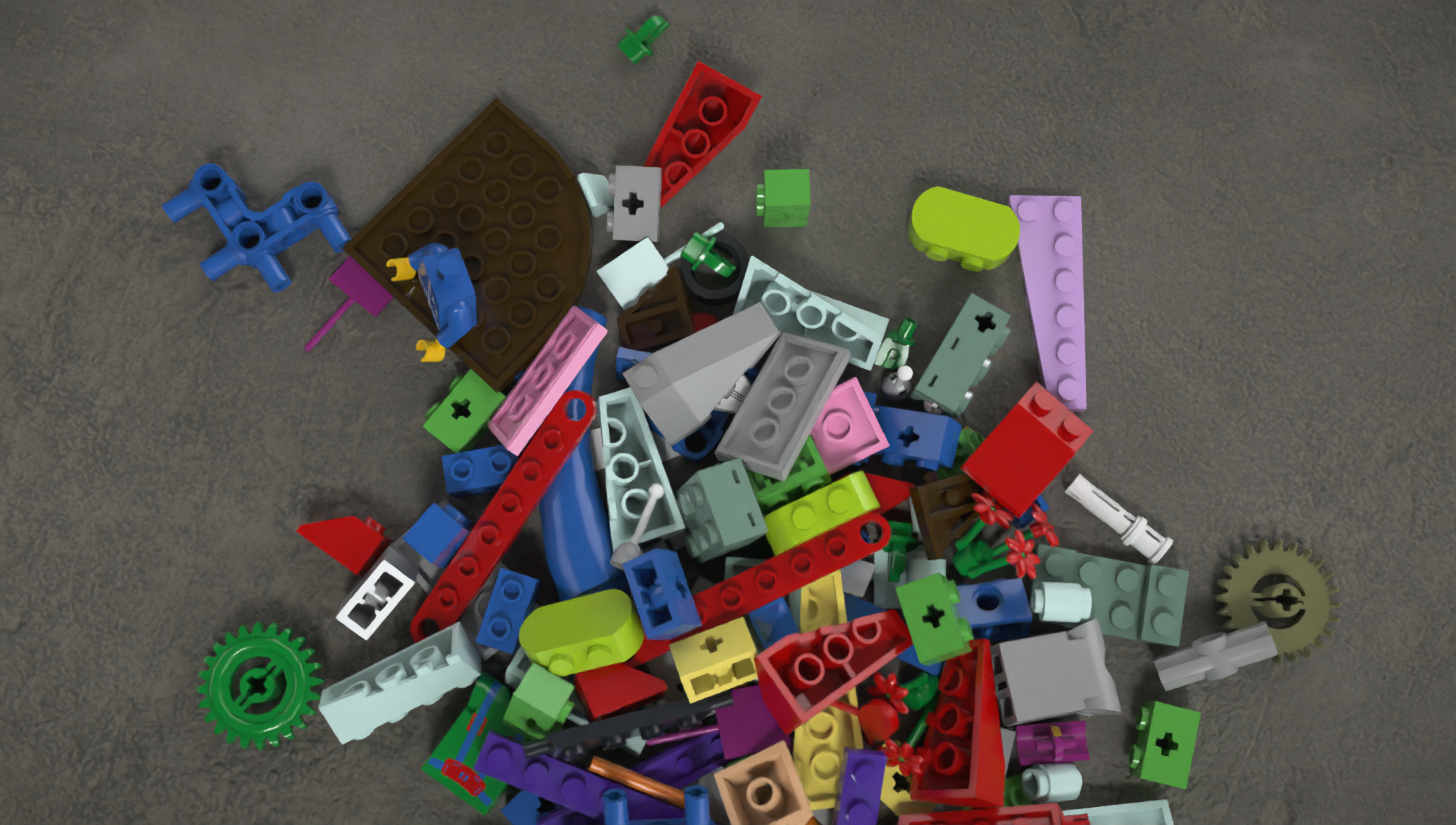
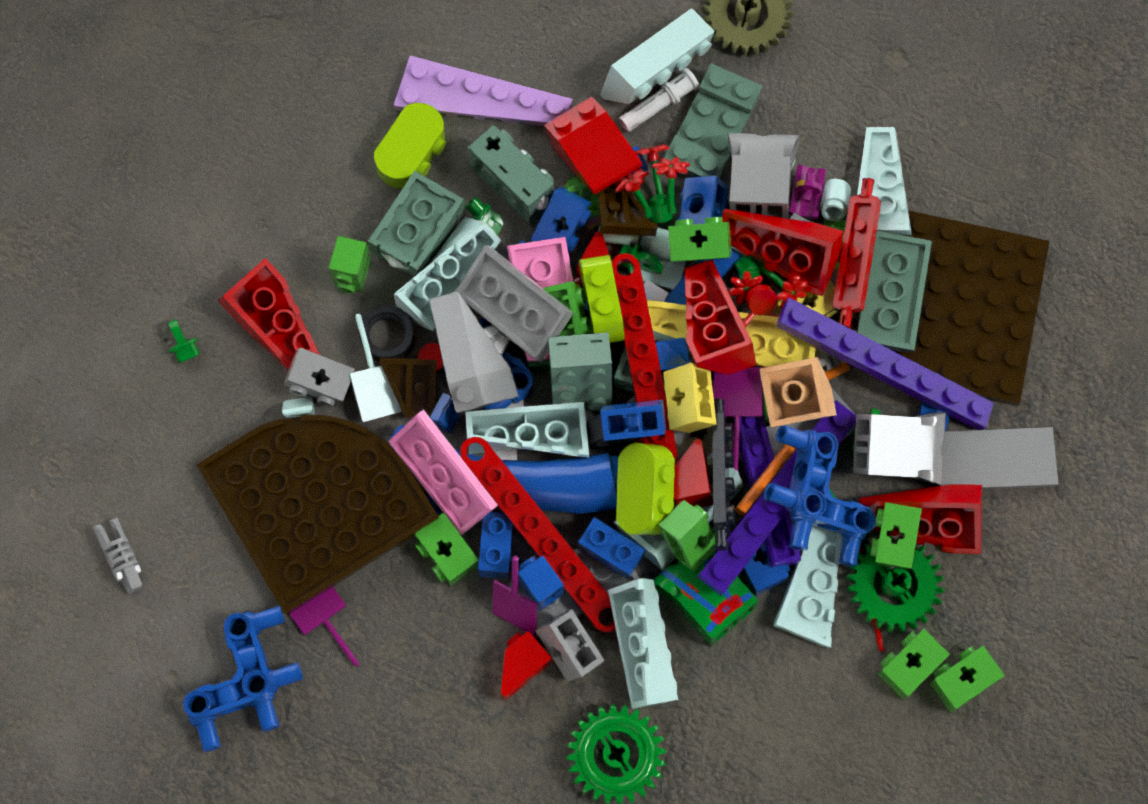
camera: 75 degrees left, 5 degrees down
(369, 47) = (120, 556): none -> light grey hinge
(413, 502) = (514, 606): none -> magenta piece
(447, 293) = (351, 529): blue torso -> none
(631, 550) = (594, 443): hinge -> none
(700, 250) = (373, 336): green piece -> none
(860, 263) = (416, 225): none -> sand green piece
(891, 389) = (518, 231): light grey hinge -> none
(1061, 602) = (710, 152): light aqua brick -> none
(1173, 725) = (821, 104): bright green brick -> none
(1174, 502) = (657, 58): none -> light aqua wedge
(1215, 656) = (775, 63): light grey piece -> none

